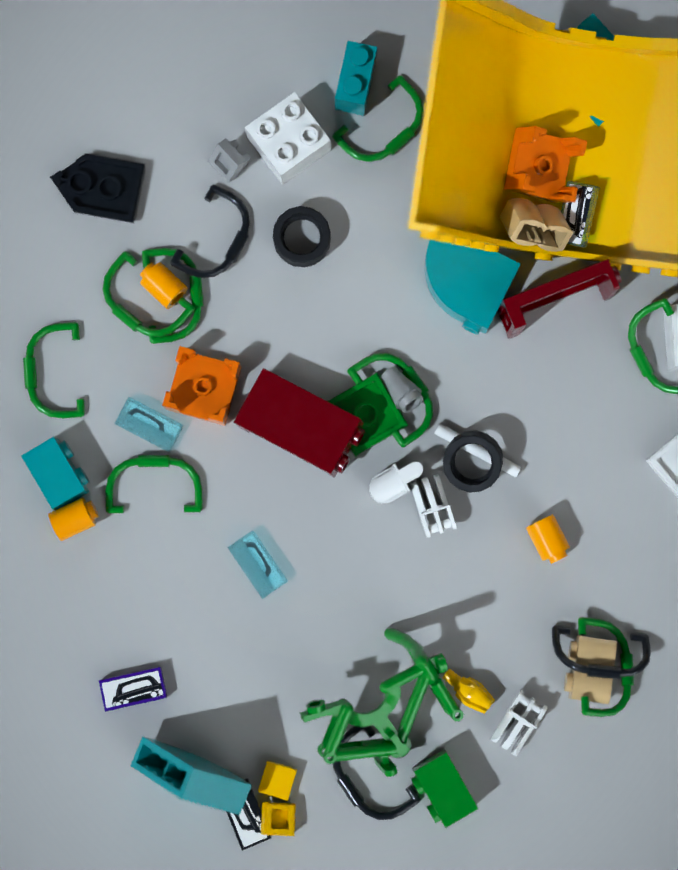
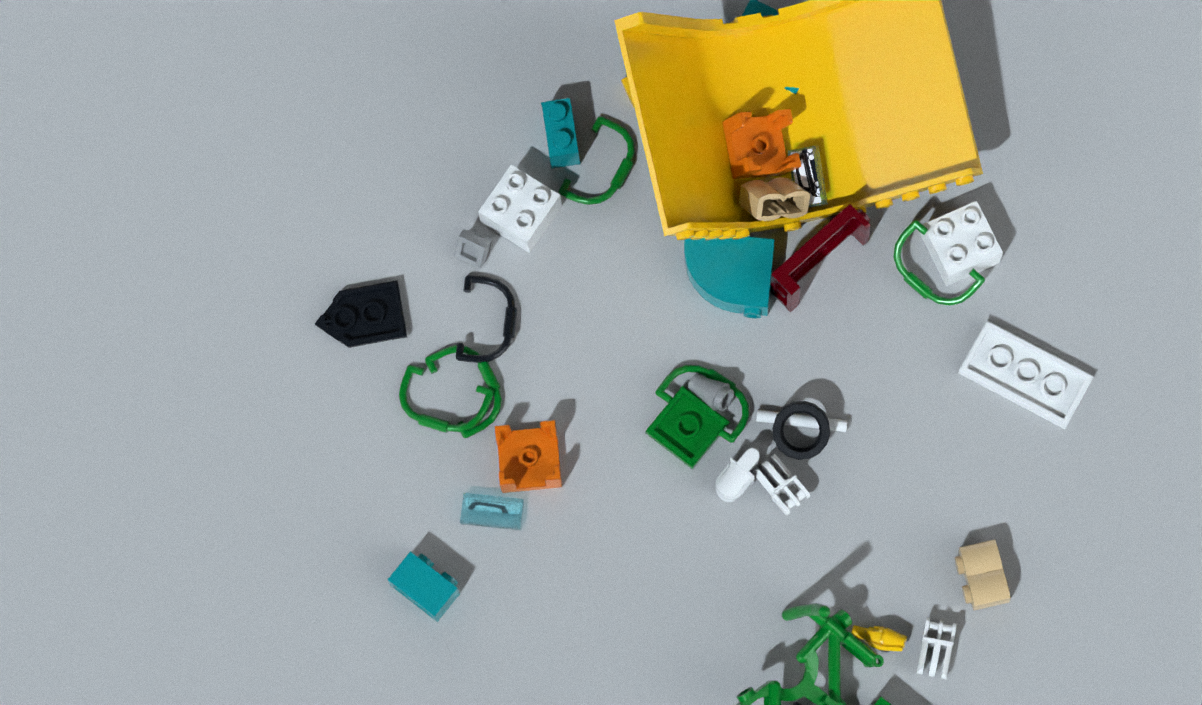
camera: 15 degrees left, 10 degrees down
(30, 371) = (364, 506): green piece -> none
(73, 518) = (456, 620): light orange brick -> none
(153, 461) = (510, 542): green piece -> none
(162, 284) = (456, 380): light orange brick -> none
(257, 564) = (641, 599): clear light blue tile -> none
(295, 214) = (561, 269): black tyre -> none
(300, 423) = (630, 454): dark red panel -> none
(548, 539) = (897, 473): light orange brick -> none
(601, 671) = (991, 568): black piece -> none
(626, 661) = (1013, 559): green piece -> none

